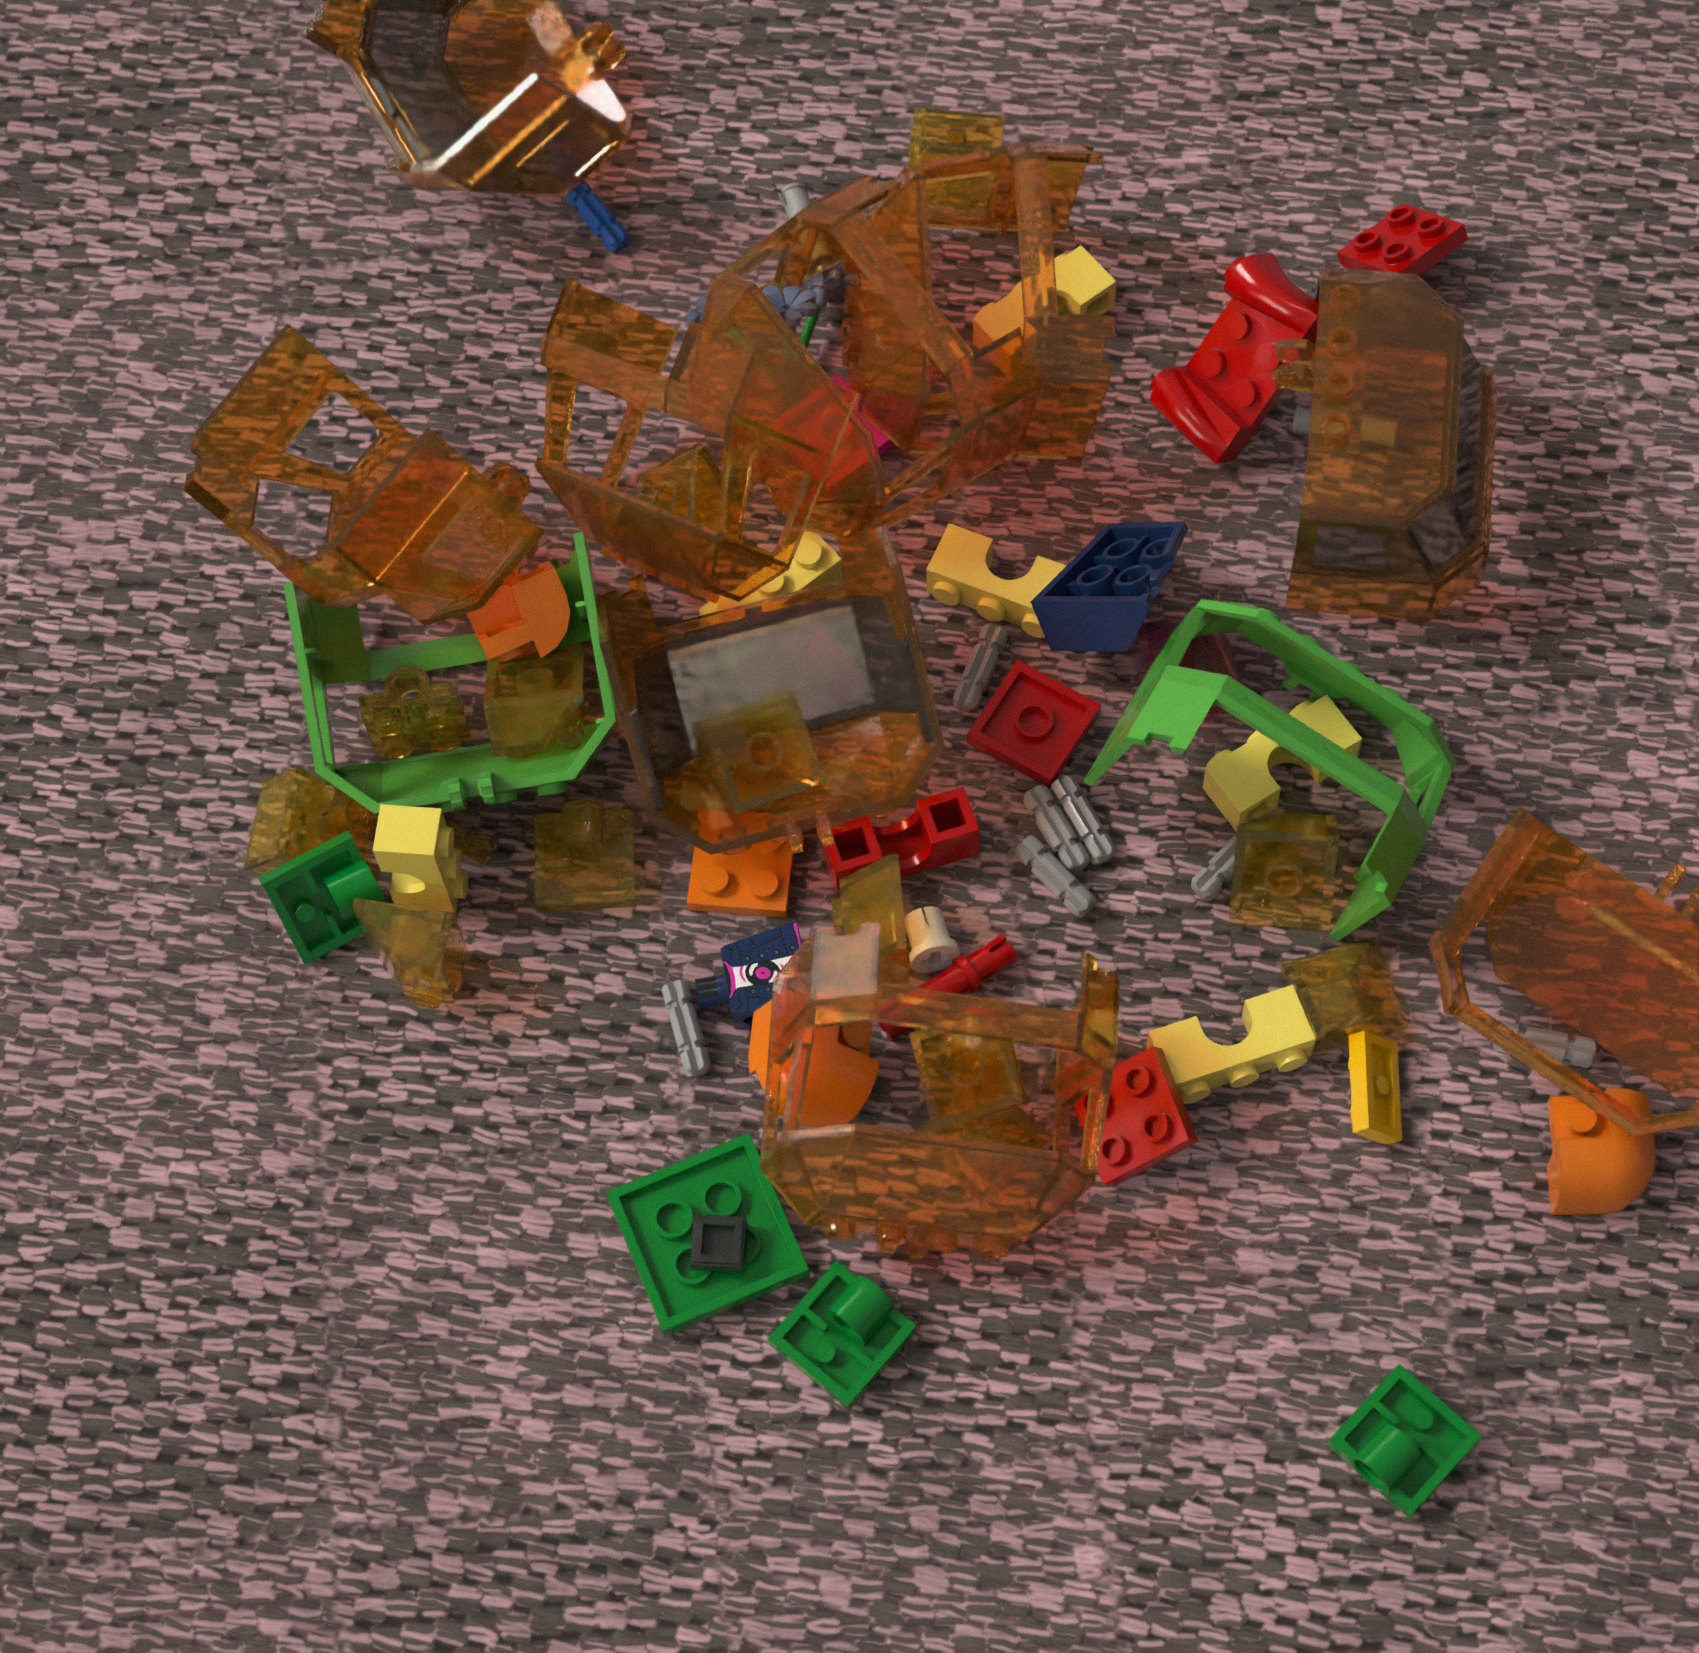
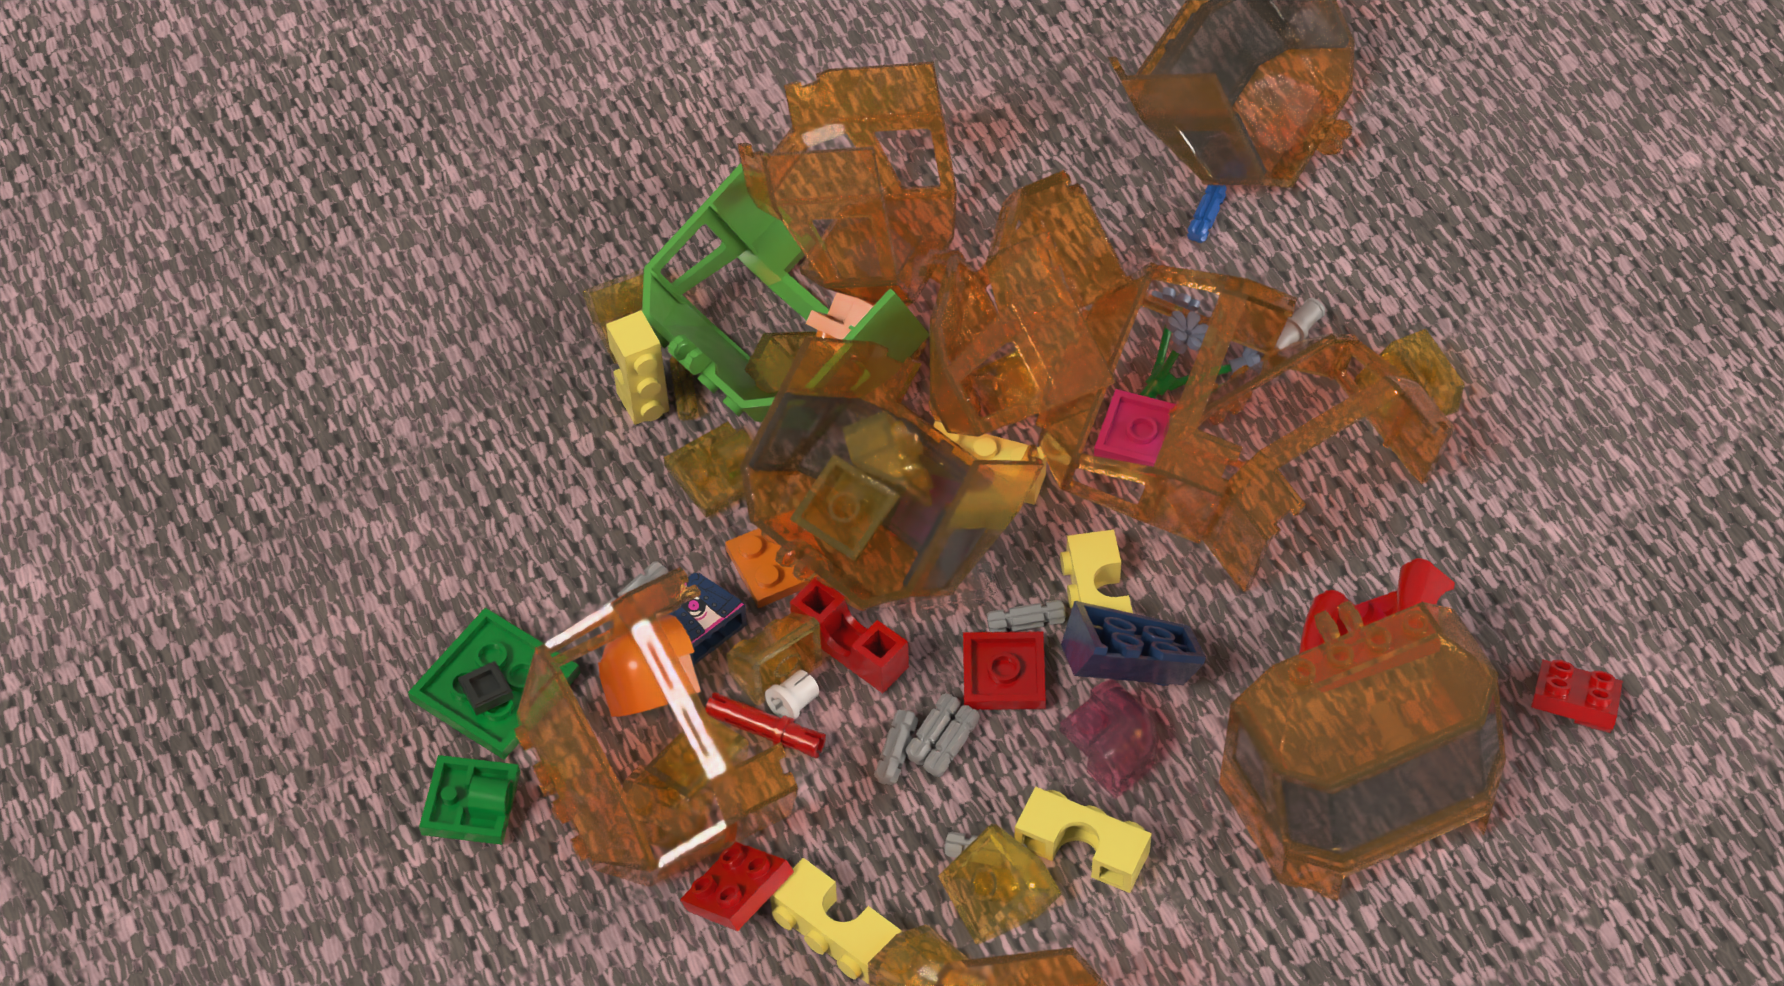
camera: 55 degrees right, 10 degrees down
(318, 894) = (581, 342): green plate -> none
(417, 948) = (579, 408): clear yellow slope -> none
(427, 721) = (743, 308): clear yellow plate -> none
(741, 673) = (890, 455): none -> clear yellow slope
(1081, 290) = (1369, 503): arch -> none
(1177, 699) = (1021, 912): bright green windscreen -> none

